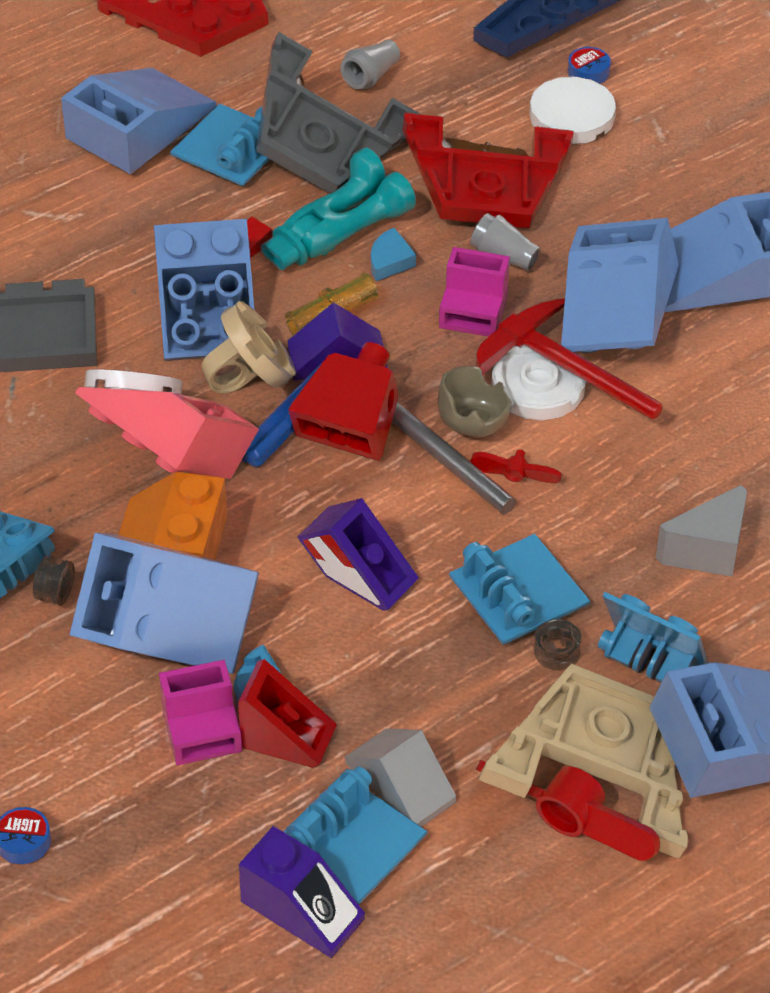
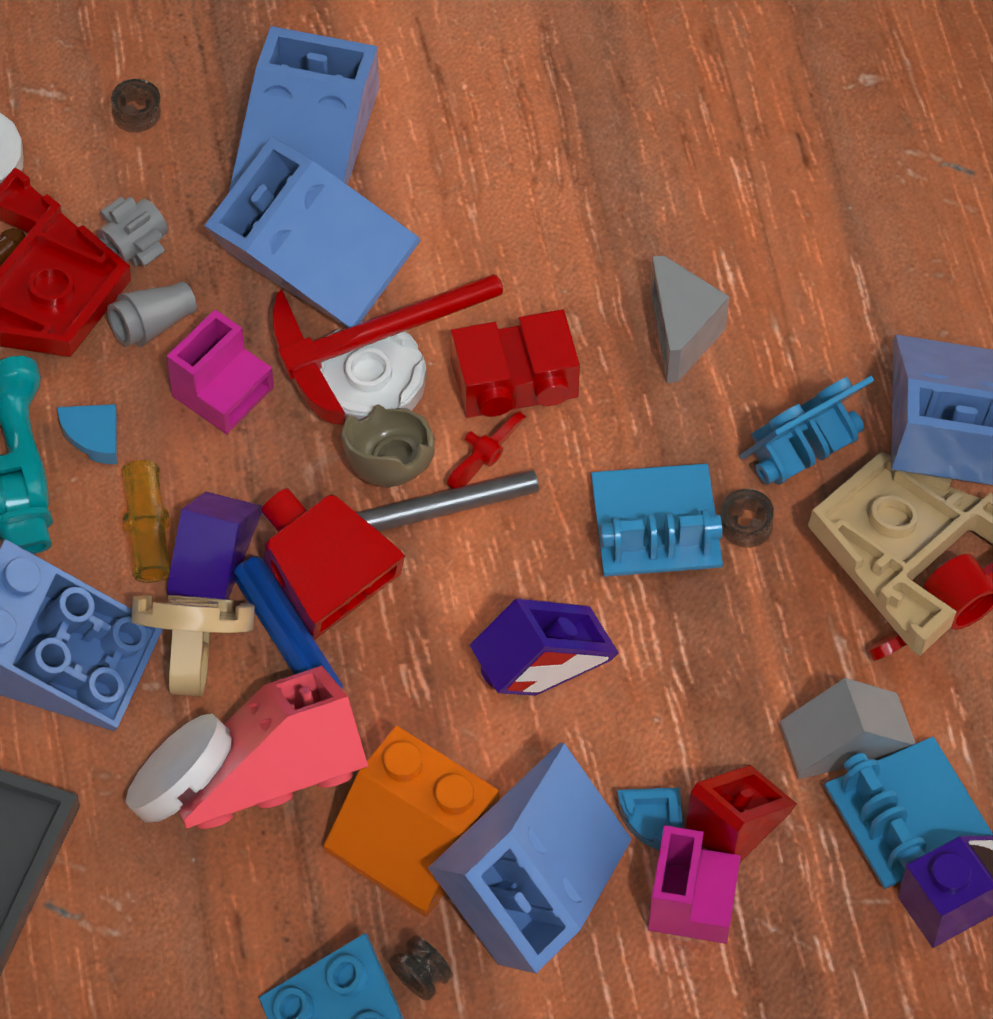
camera: 65 degrees left, 10 degrees up
(561, 205) = (133, 230): none -> light grey gear
(595, 451) = (515, 364): none -> red brick
(680, 163) = (128, 116): none -> clear smoke bush

